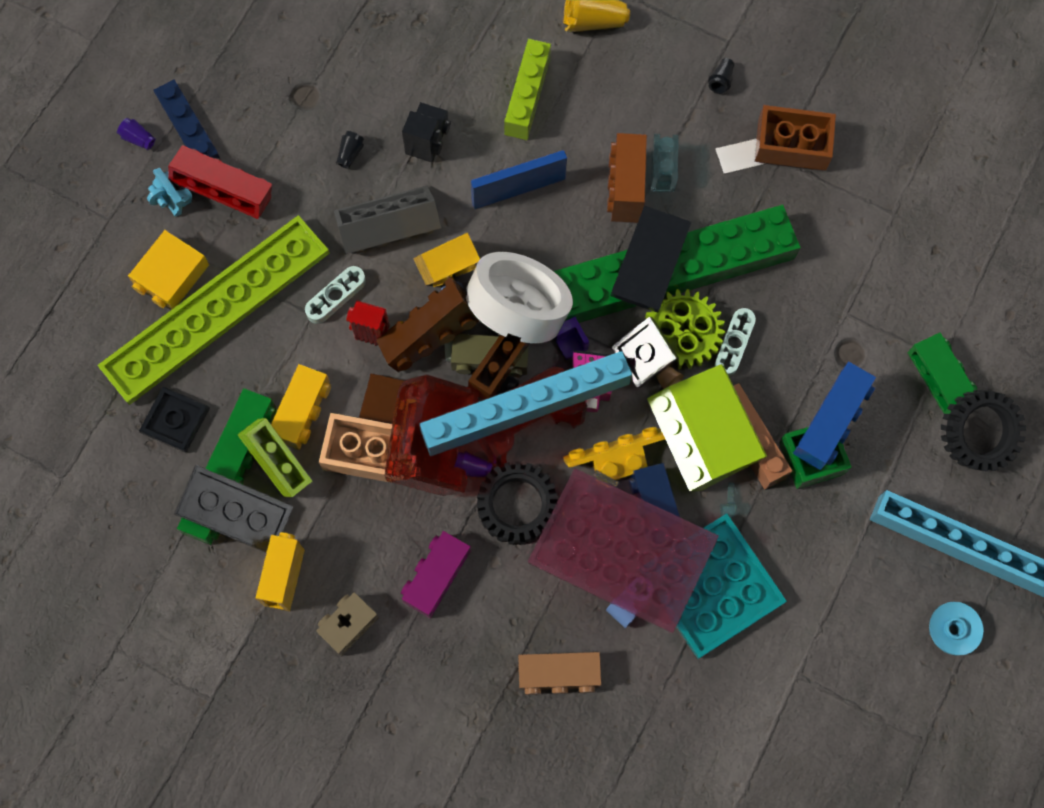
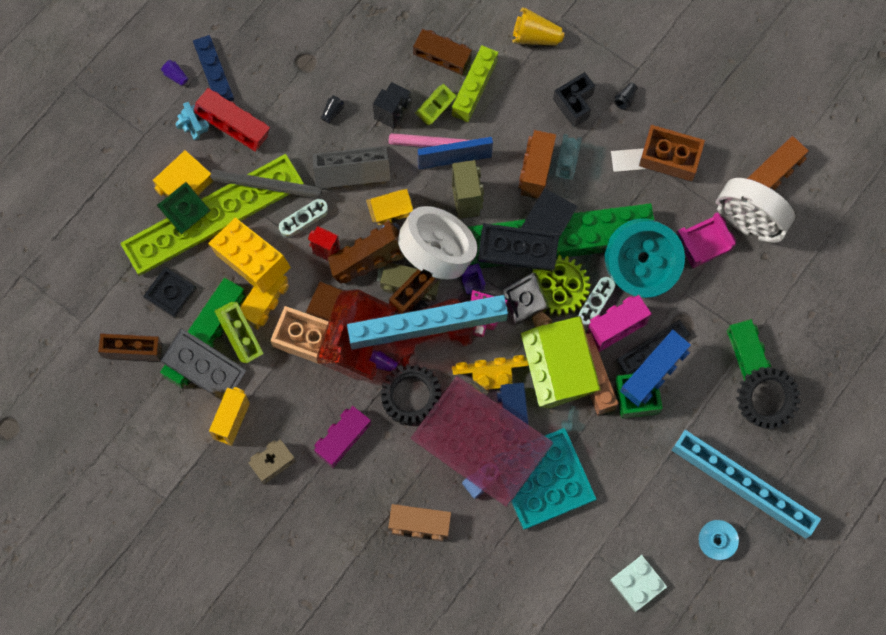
camera: 10 degrees right, 0 degrees up
(131, 501) = (130, 347): none -> reddish brown brick
(174, 305) = (183, 208): none -> dark green tile
(272, 354) = (249, 255): none -> yellow brick
(278, 257) = (266, 183): none -> dark grey axle
(464, 173) = (420, 141): none -> bright pink axle
(478, 55) = (442, 51): none -> reddish brown brick
(482, 122) = (435, 104): none -> lime brick
(543, 222) = (467, 189): none -> olive brick
(625, 286) = (518, 247): none -> black tile
(655, 89) = (572, 97): none -> black brick
(772, 362) = (619, 322): none -> dark pink brick
(813, 281) = (661, 268): none -> teal brick
(813, 394) = (635, 358): none -> black tile
(859, 241) = (706, 240): none -> dark pink panel
(862, 704) = (638, 583): none -> light aqua plate
(920, 190) = (755, 209): none -> white brick
(926, 141) = (780, 164): none -> dark orange brick

